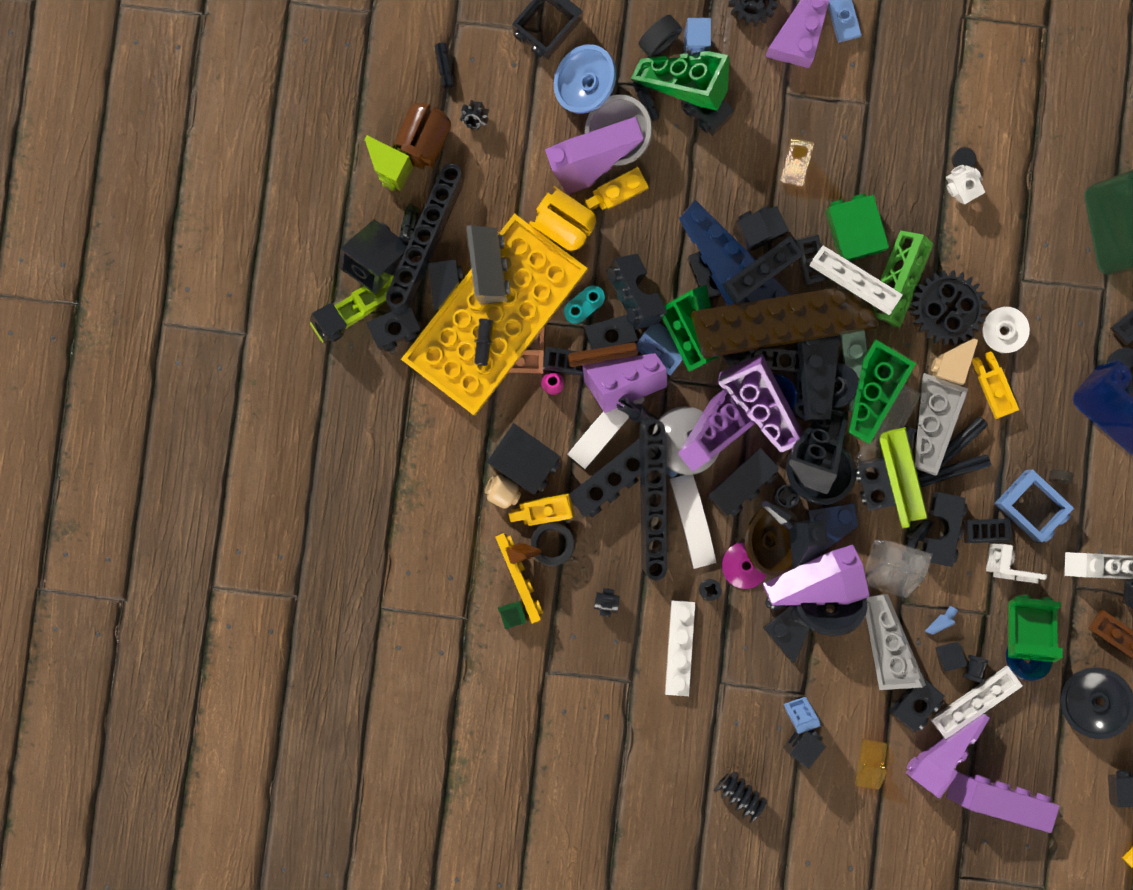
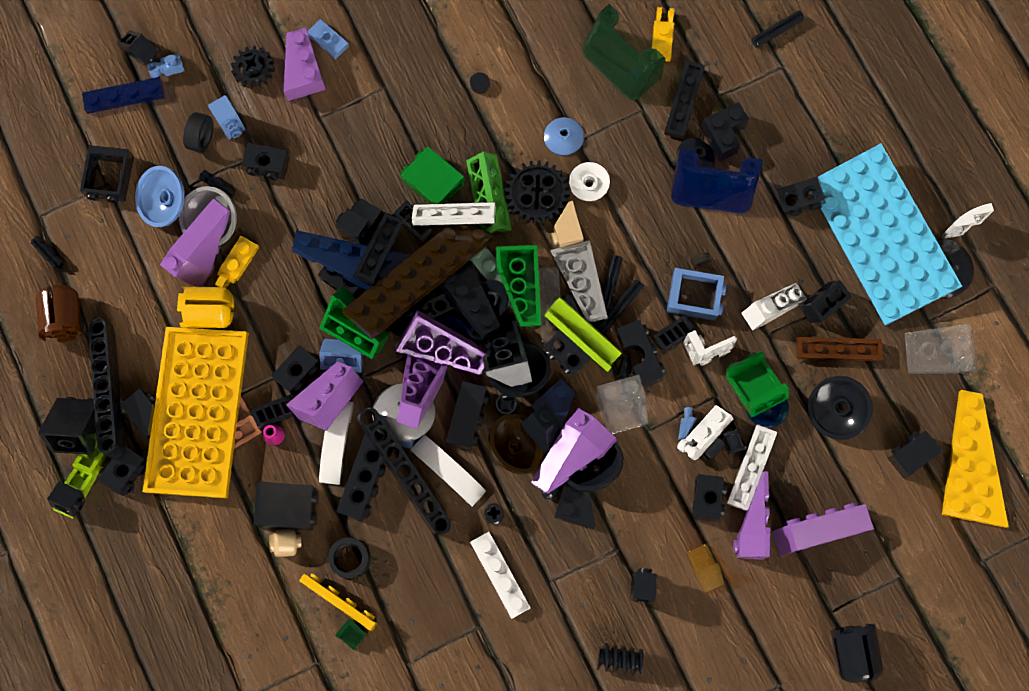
camera: 30 degrees left, 10 degrees down
(389, 164) = (45, 348): lime slope -> none
(408, 222) = (86, 384): black axle -> none
(474, 114) = (91, 273): black gear -> none
(483, 342) = (198, 436): black axle -> none
(488, 264) = (165, 376): dark grey slope -> none
(521, 552) = (327, 580): reddish brown slope -> none
(544, 510) = (325, 535): yellow hinge -> none
(584, 304) = (261, 360): teal plate -> none
(602, 354) = (297, 387): reddish brown axle -> none
(606, 602) = (419, 575): black gear -> none
(635, 412) = (349, 415): black pin -> none
(641, 308) = (305, 334): black arch -> none
(693, 78) = (239, 147): green wedge -> none
(733, 569) = (508, 489): magenta dish -> none
(779, 514) = (508, 421): black bar -> none
(796, 161) = (356, 158): clear yellow slope -> none
(802, 715) = (625, 563): medium blue plate -> none
(891, 651) = (661, 469): light grey wing -> none
(955, 642) = (705, 433): none -> white plate
(965, 184) = (490, 98): white brick -> none
(995, 387) = (609, 227): yellow hinge -> none
(1003, 274) = (561, 144): none -> medium blue dish

